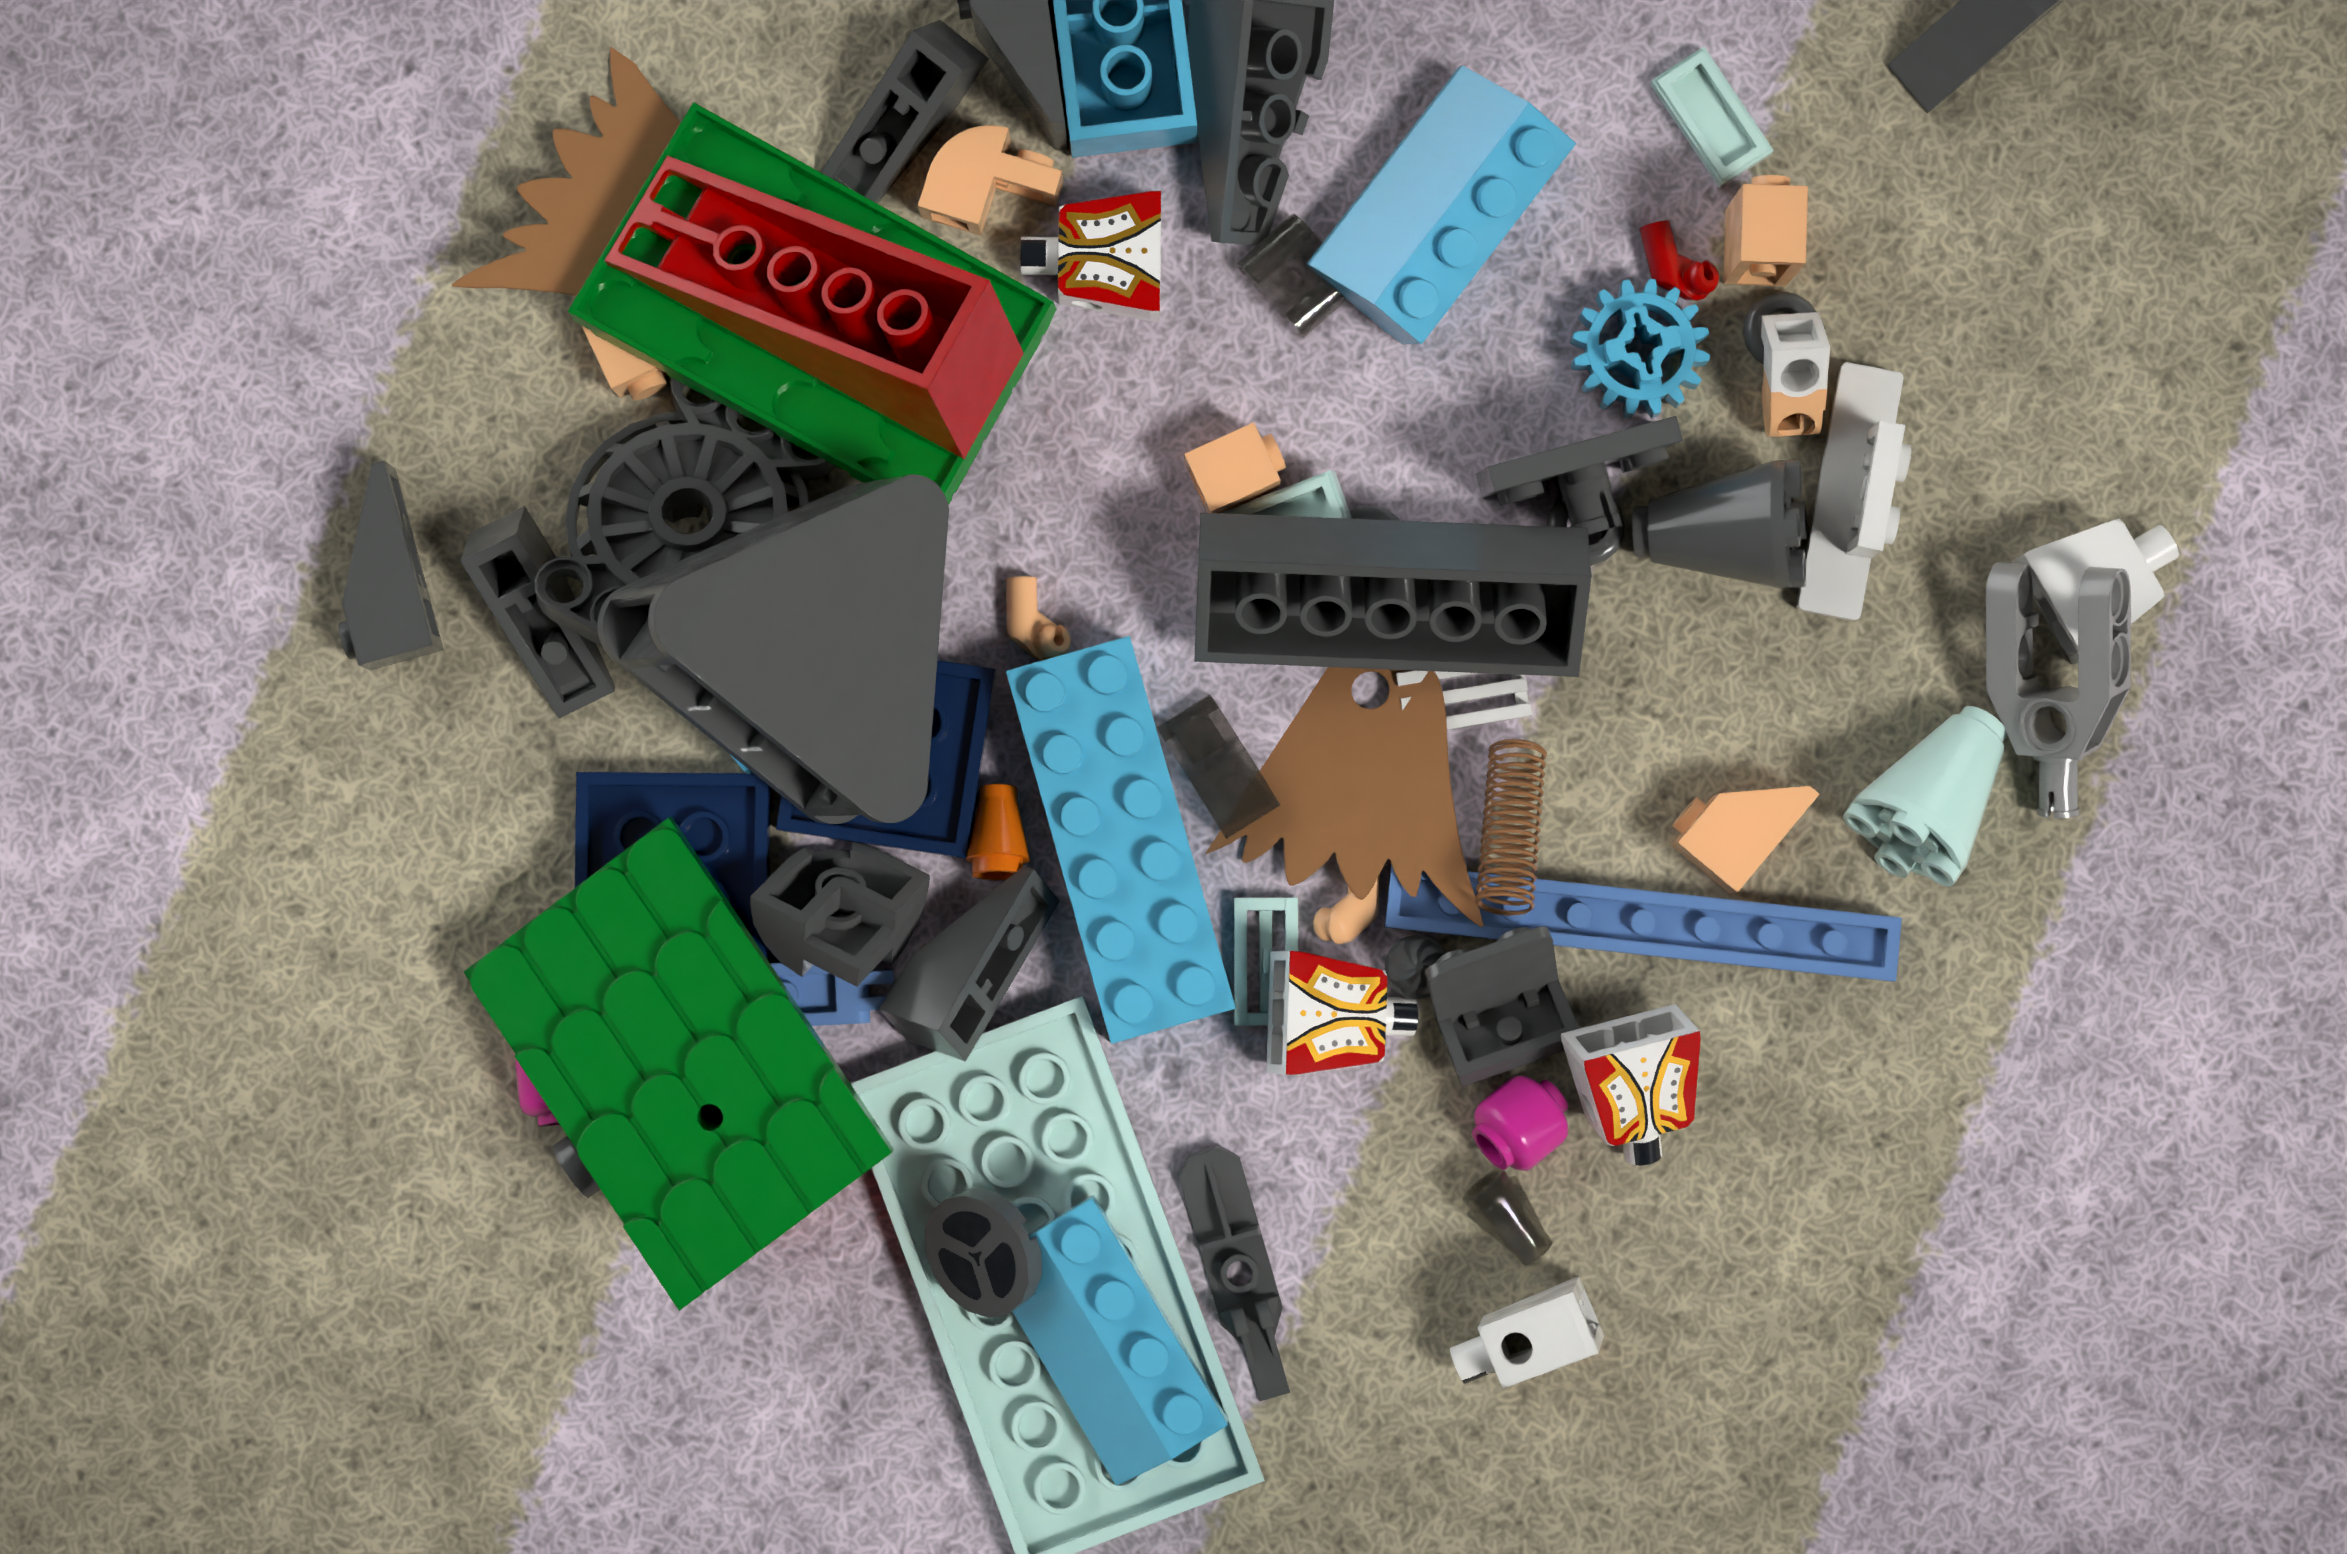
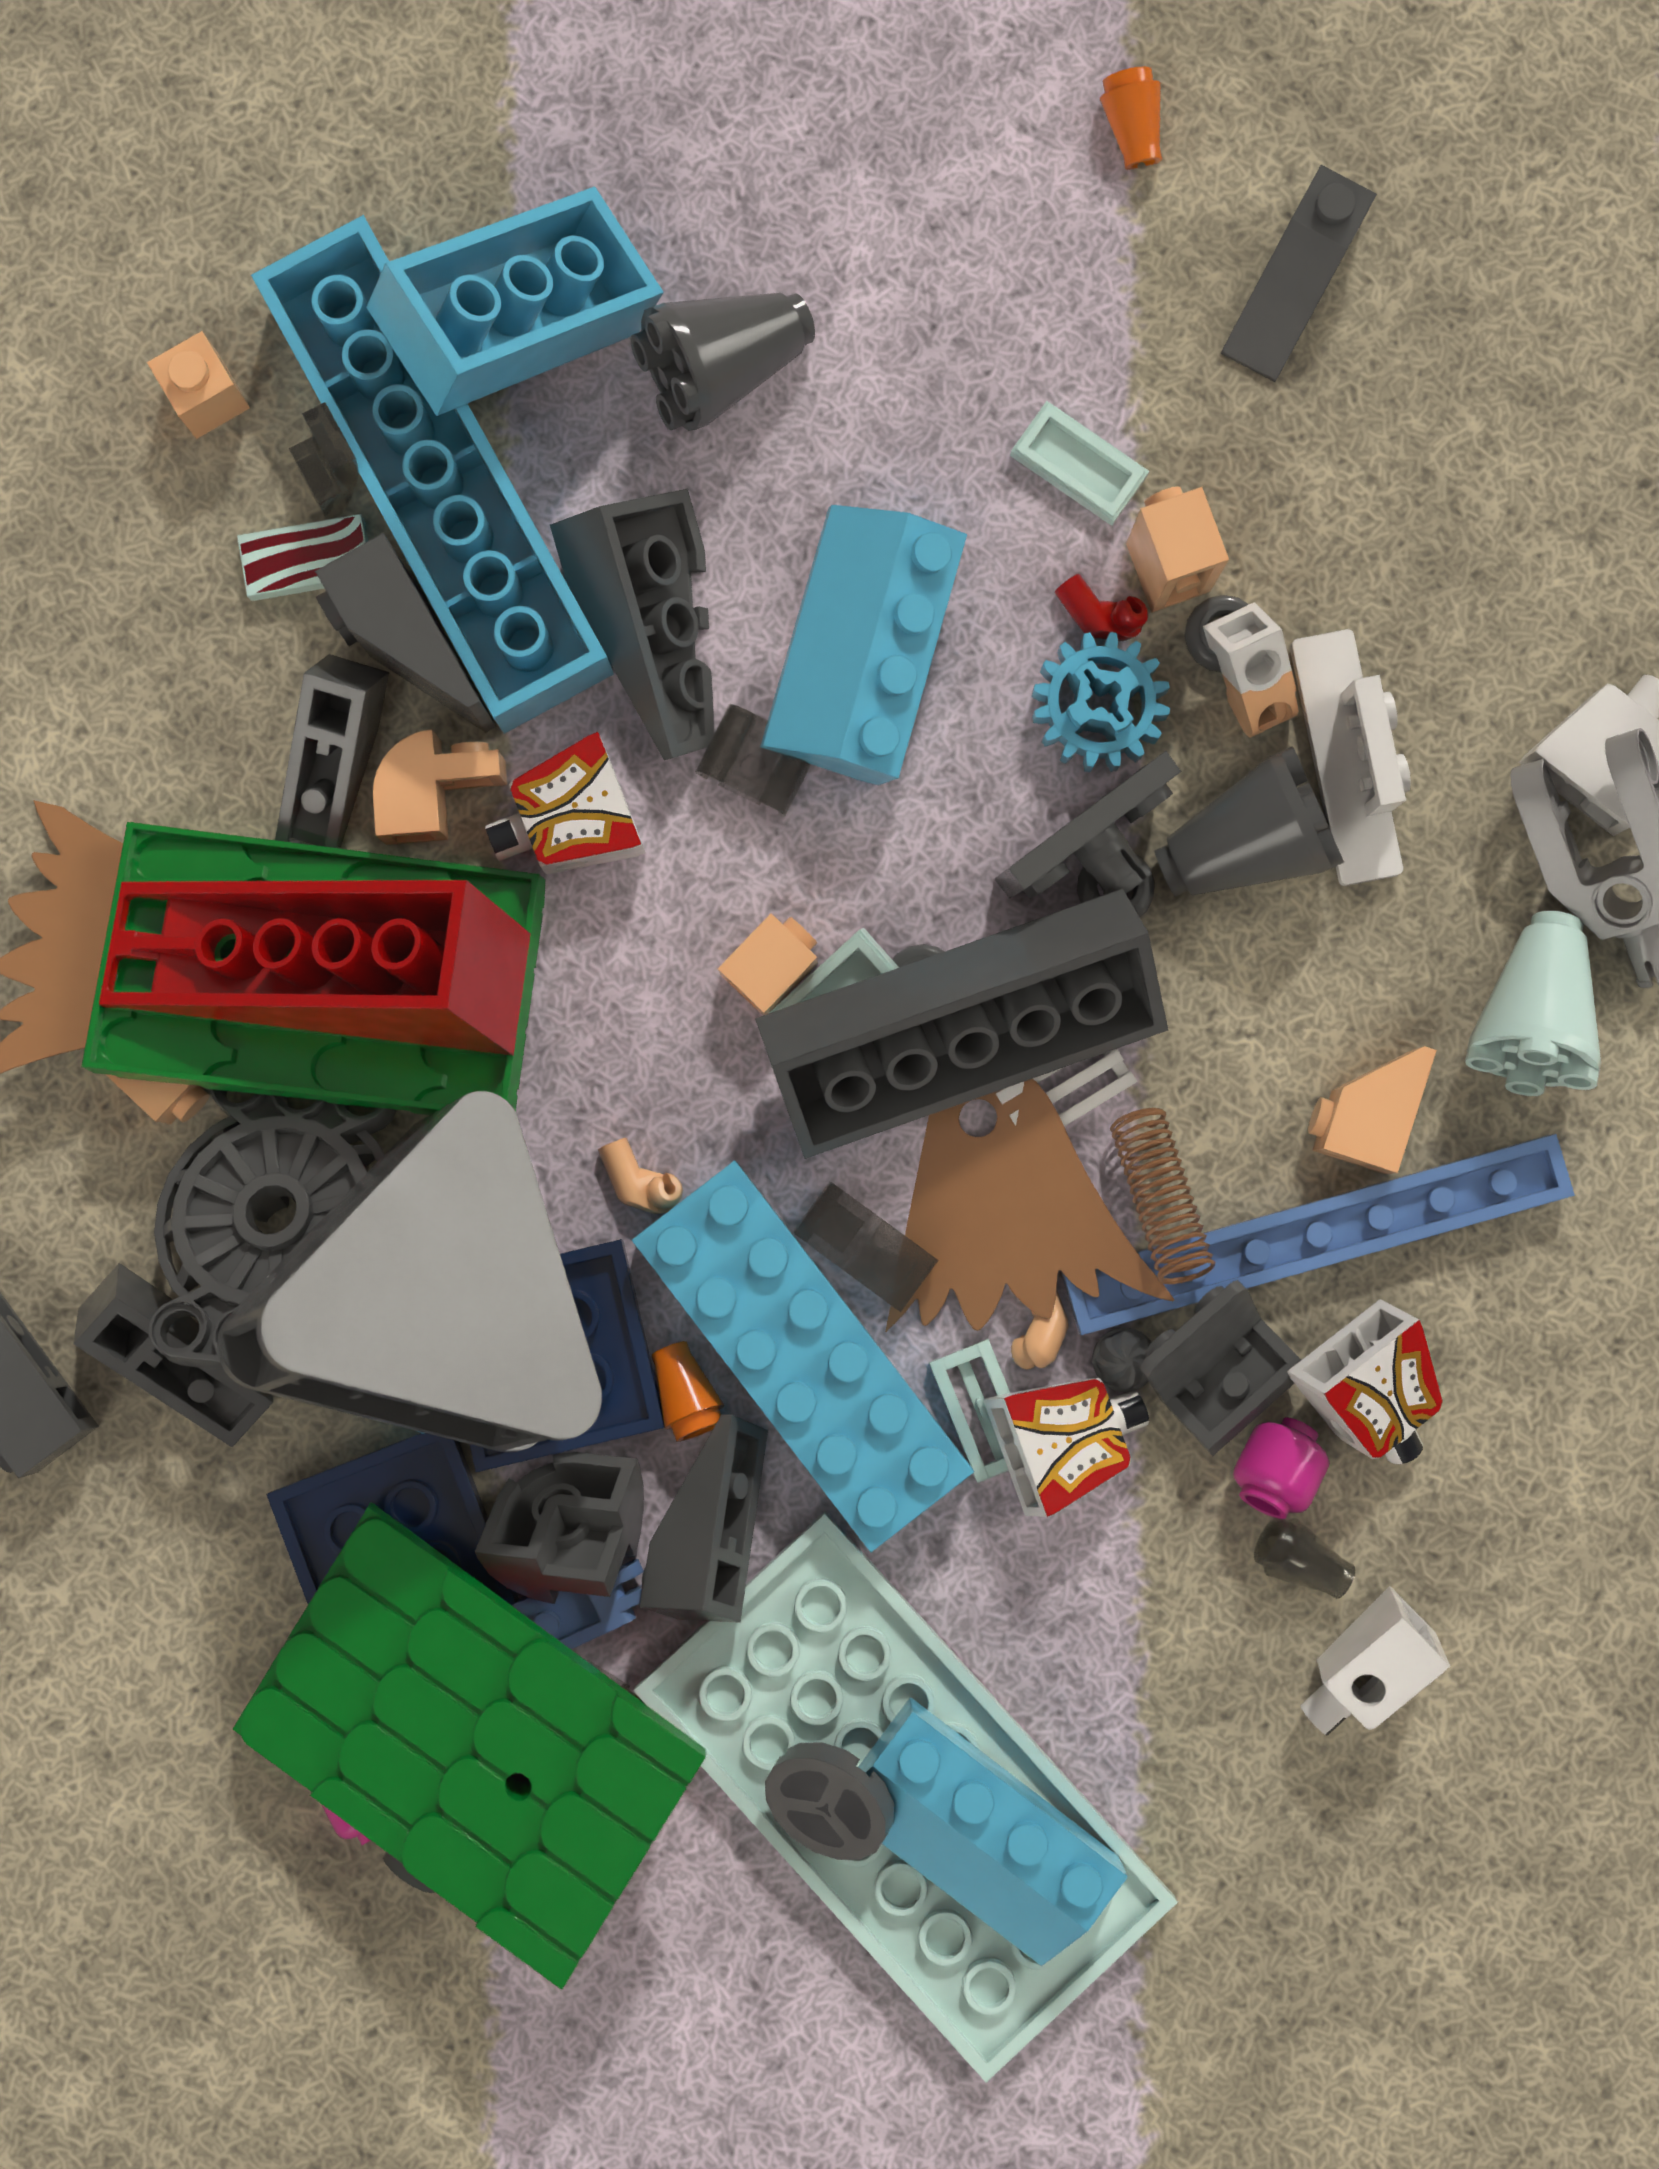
camera: 20 degrees left, 0 degrees up
(1231, 1233) = (1050, 1680): dark grey piece -> none

